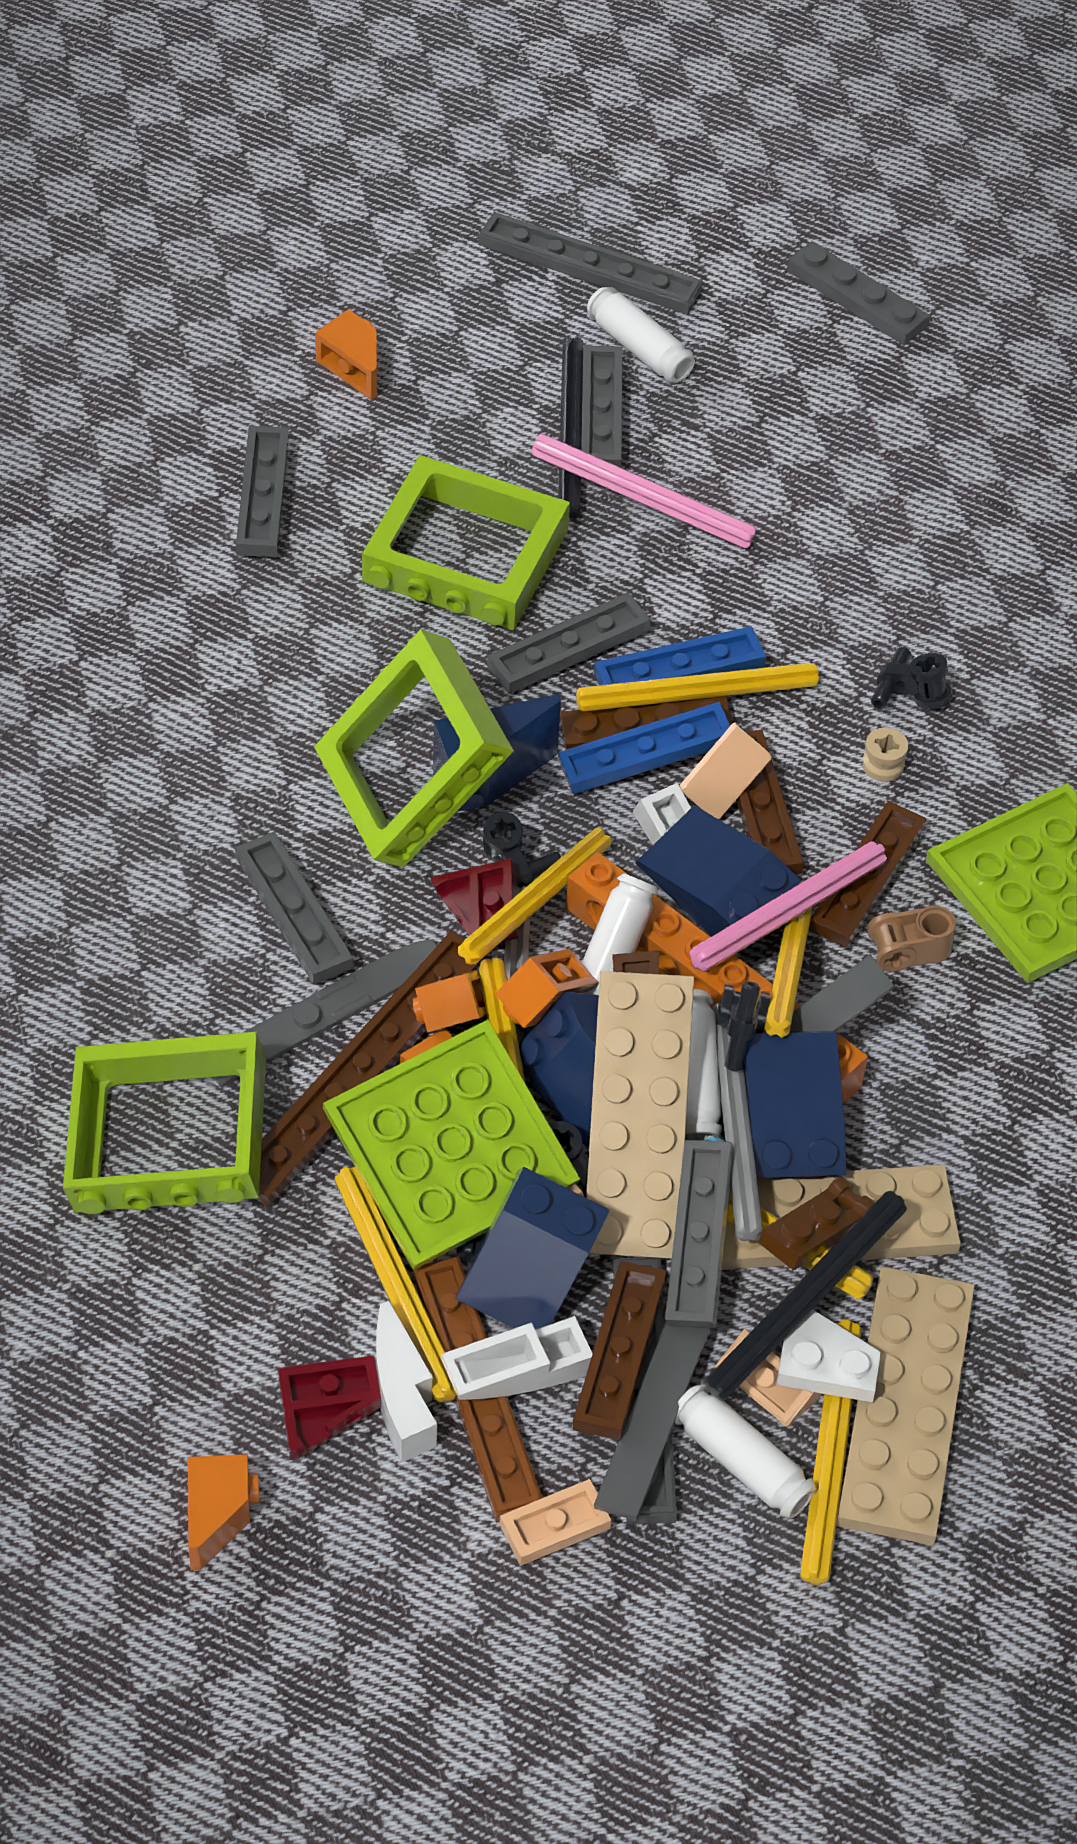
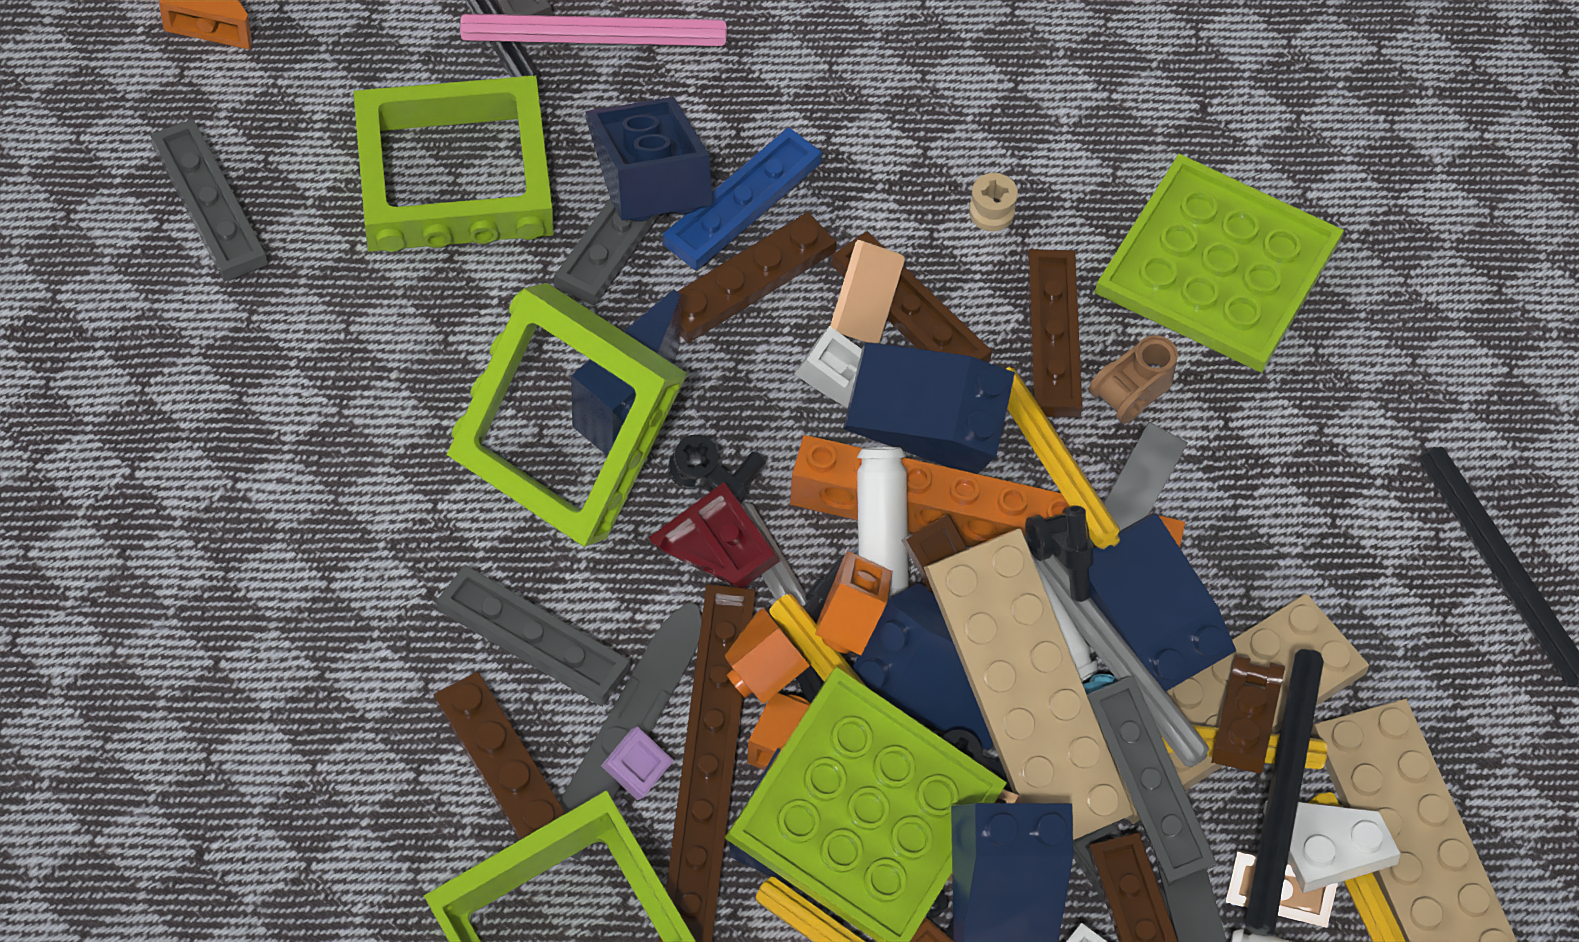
camera: 30 degrees left, 5 degrees up
(208, 975) = (498, 755): none -> reddish brown plate
(309, 1036) = (637, 763): none -> lavender tile
(531, 898) = (773, 512): yellow axle -> none
(616, 600) = (650, 158): none -> dark blue slope
(643, 748) = (769, 302): blue plate -> none
(697, 687) = (775, 215): yellow axle -> none
(787, 906) = (1019, 406): bright pink axle -> none
(914, 679) = (972, 112): black piece -> none

